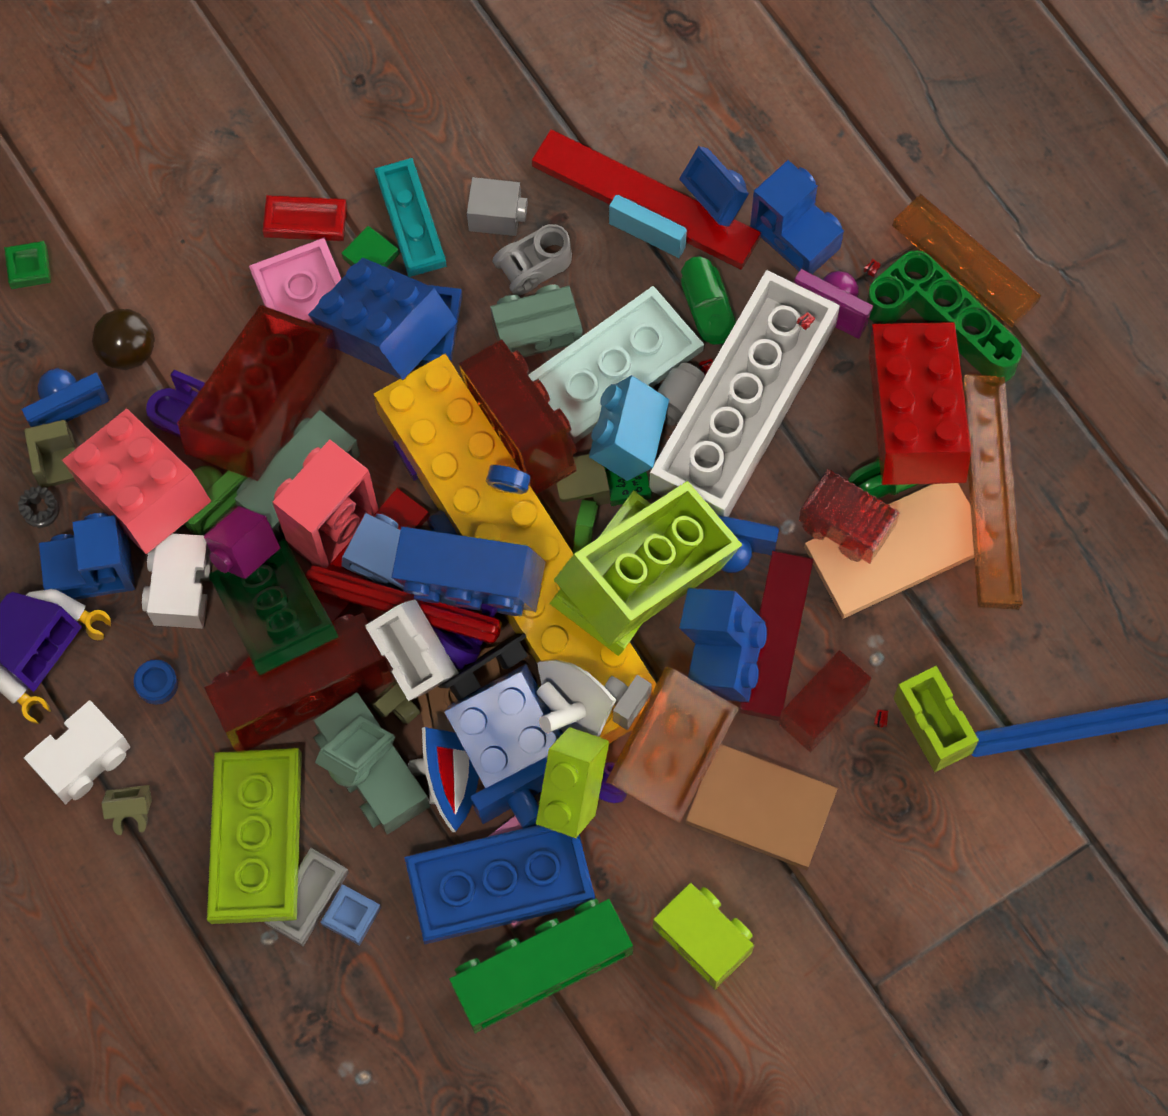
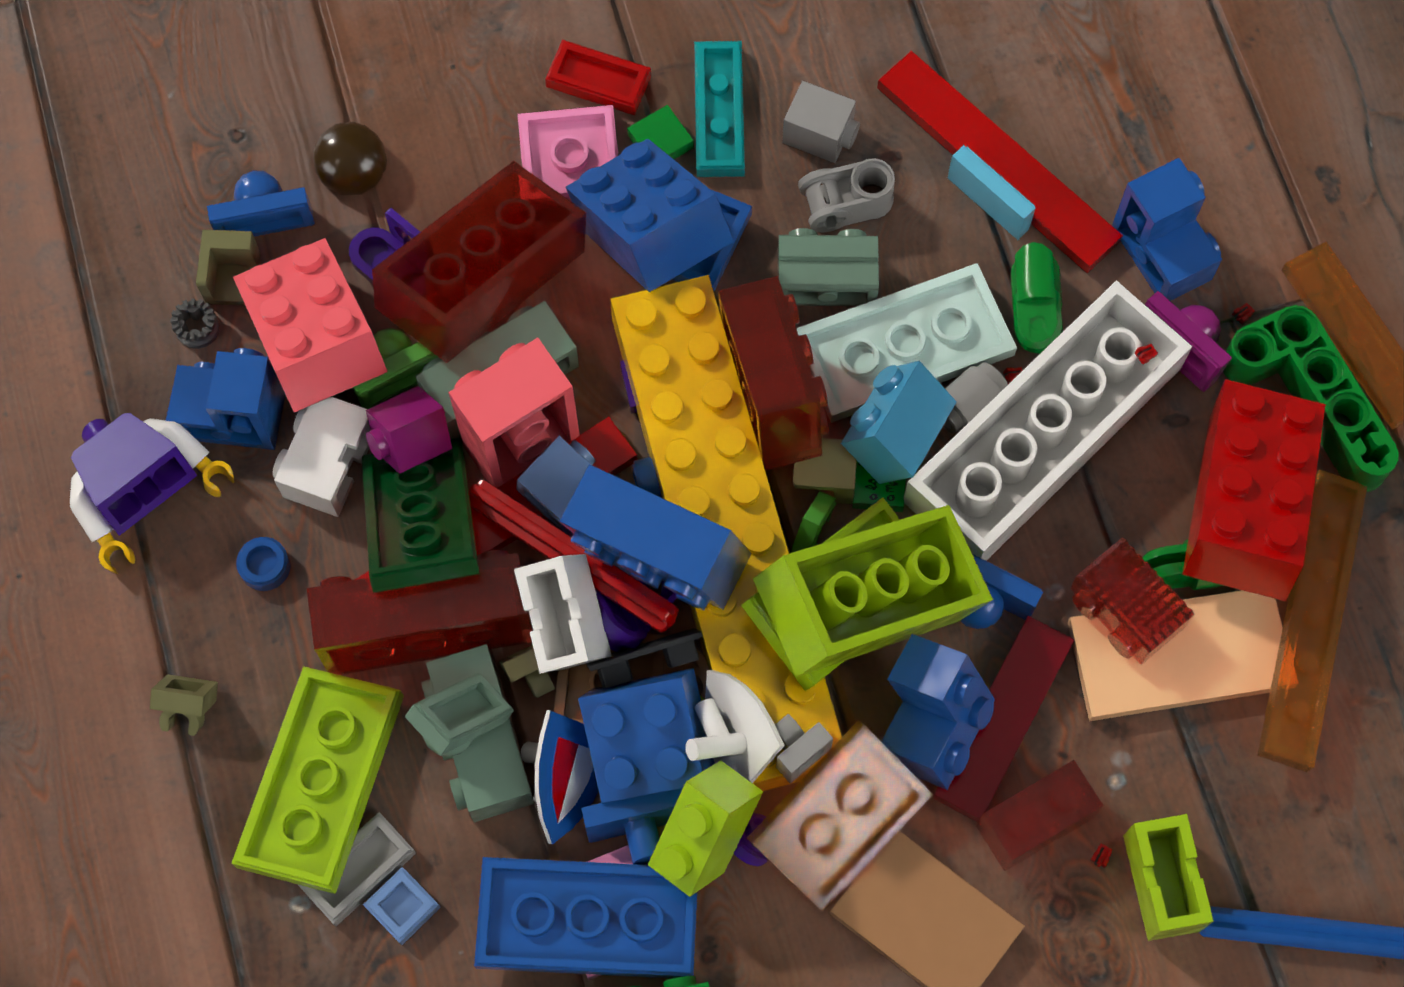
camera: 15 degrees right, 0 degrees up
(27, 265) = (270, 46): green tile -> none
(78, 754) = (147, 623): white brick -> none
(508, 479) = (735, 443): blue tile -> none
(714, 186) = (1083, 166): blue tile -> none

